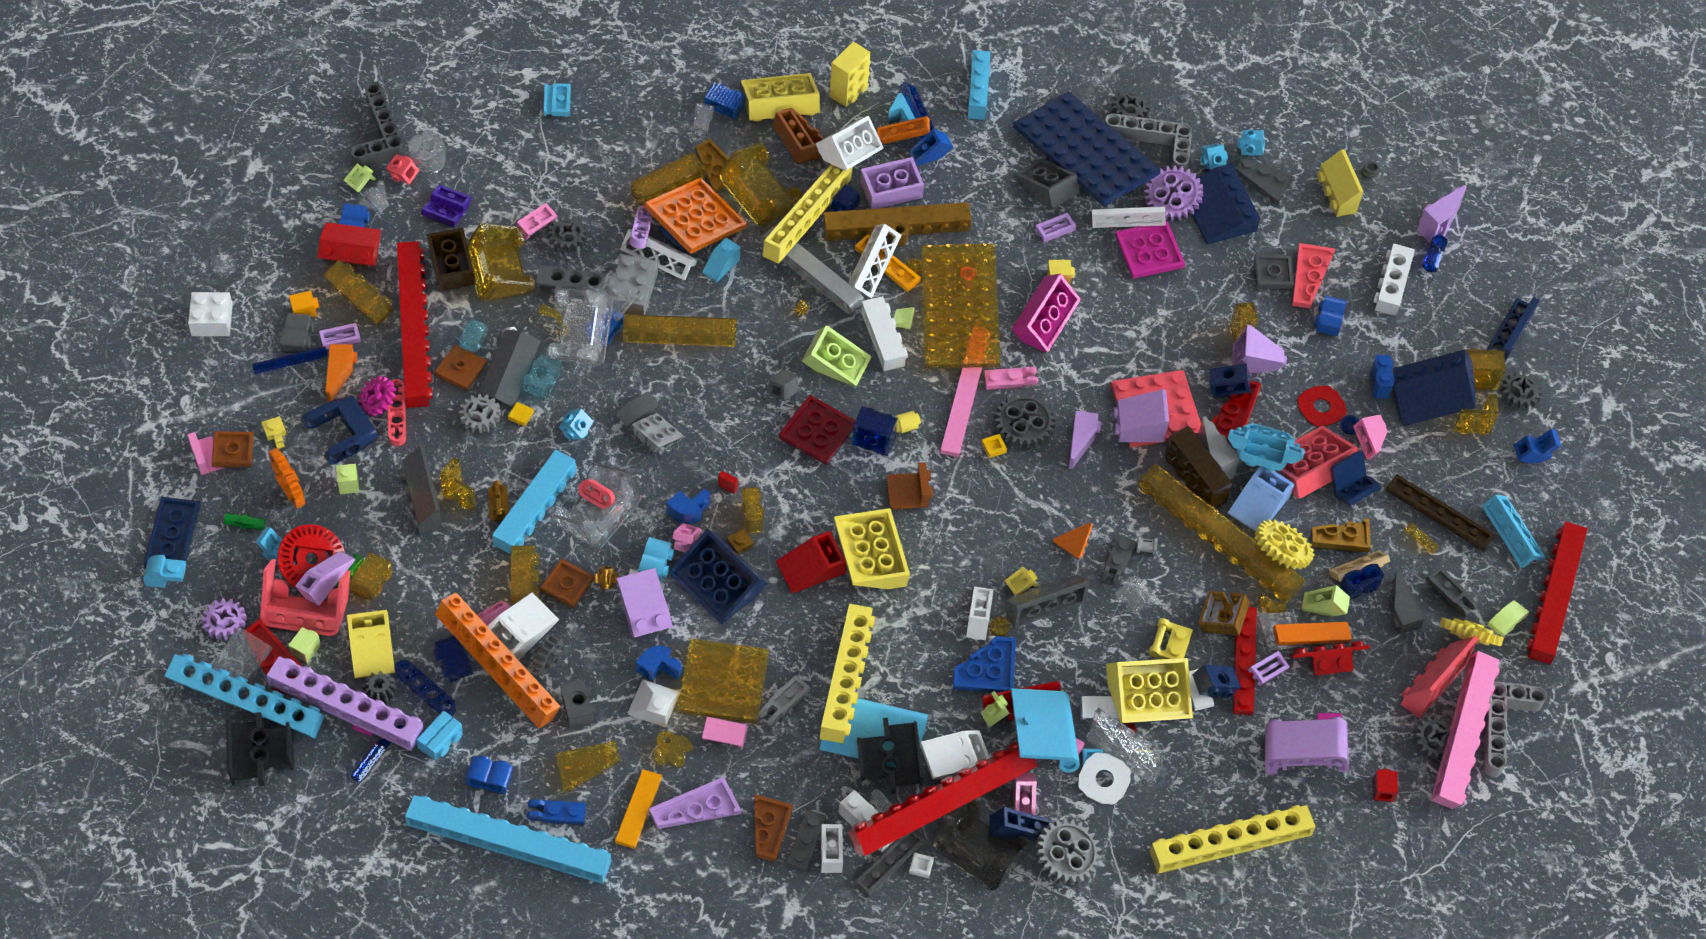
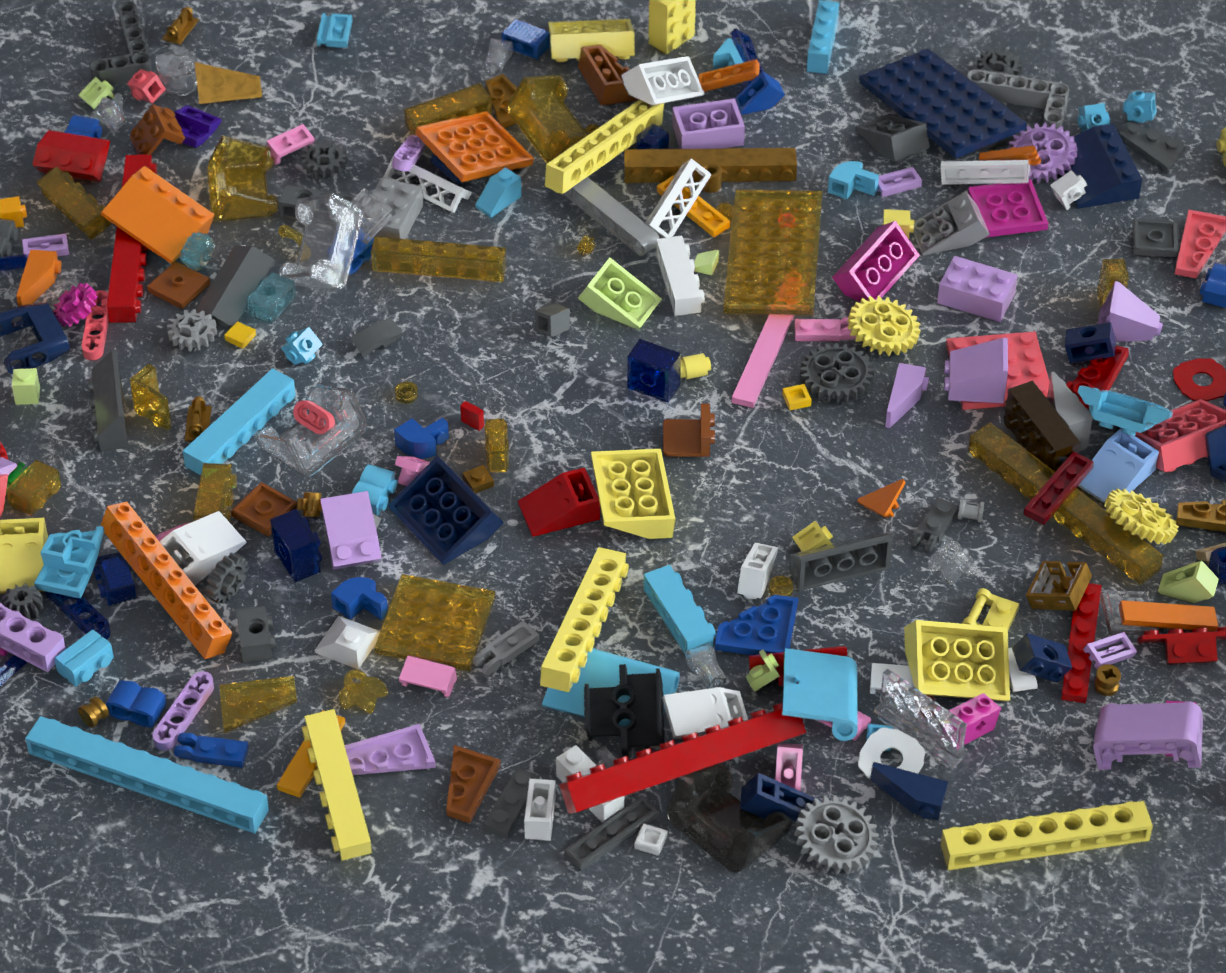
camera: 10 degrees right, 10 degrees down
(414, 649) = (69, 561): none -> medium azure slope
(417, 214) = (153, 128): none -> dark orange bracket
(422, 103) = (181, 27): none -> pearl gold hinge
(435, 304) = (157, 214): none -> orange slope
(450, 259) = (186, 170): dark brown brick -> none
(455, 785) = (93, 711): none -> pearl gold wheel
(469, 163) = (222, 84): none -> pearl gold wing
(525, 776) = (188, 712): none -> lavender beam
(600, 619) = (296, 545): none -> clear blue brick
(656, 432) = (393, 361): light grey hinge -> none
(666, 838) = (337, 785): none -> light yellow brick
(669, 461) = (406, 392): none -> clear yellow tile
(817, 429) = (586, 369): dark red plate -> none
(920, 656) = (678, 608): none -> medium azure brick
(945, 701) = (704, 662): none -> clear piece
(1015, 226) = (851, 176): none -> medium azure brick
(1059, 373) = (883, 325): none -> light yellow gear
(1104, 271) = (950, 226): none -> light grey slope
(1128, 809) = (914, 791): none -> dark blue slope
(1132, 332) = (977, 288): none -> lavender brick
(1150, 200) = (1021, 153): none -> orange hinge
(1169, 737) = (978, 714): none -> dark pink brick
(1199, 228) = (1068, 188): none -> white brick
(1217, 524) = (1058, 488): none -> dark red plate
(1268, 700) = (1107, 686): none -> pearl gold wheel
(1269, 606) = (1116, 583): clear yellow arm -> none

